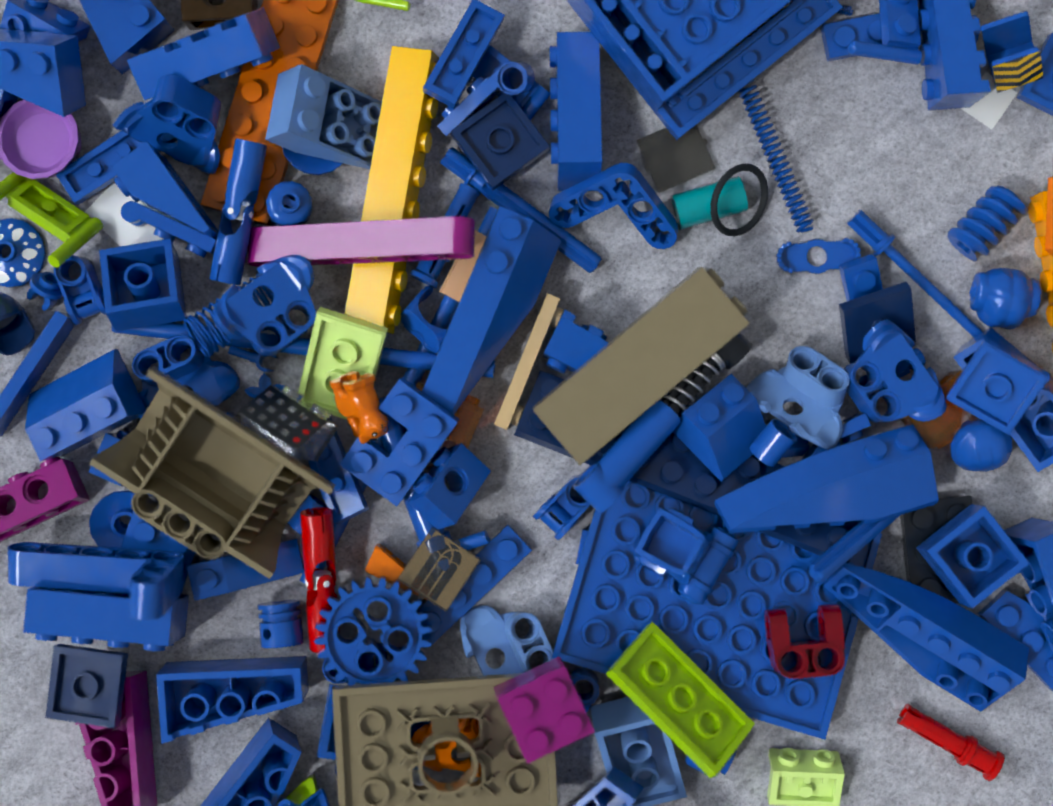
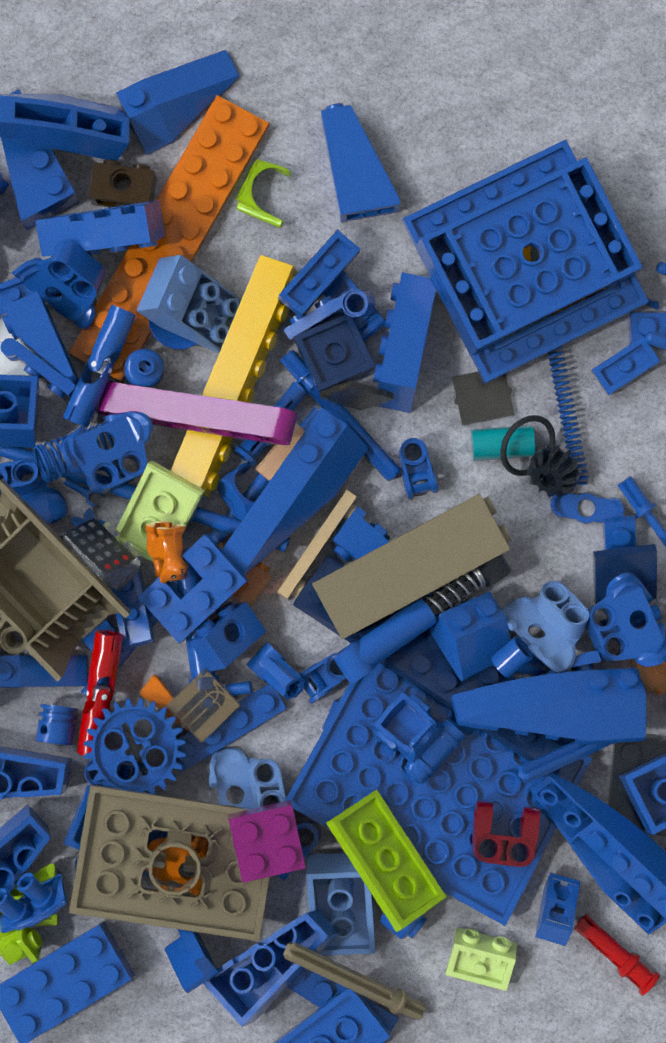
camera: 15 degrees right, 5 degrees down
(507, 510) = (272, 668): none -> blue piece
(535, 184) = (356, 395): none -> clear smoke piece
(617, 194) = (423, 418): blue beam -> none
(620, 254) = (417, 470): none -> blue piece
(775, 223) = (553, 471): none -> black gear
(829, 86) = (625, 365): none -> blue plate
(879, 709) = (557, 909): none -> blue piece

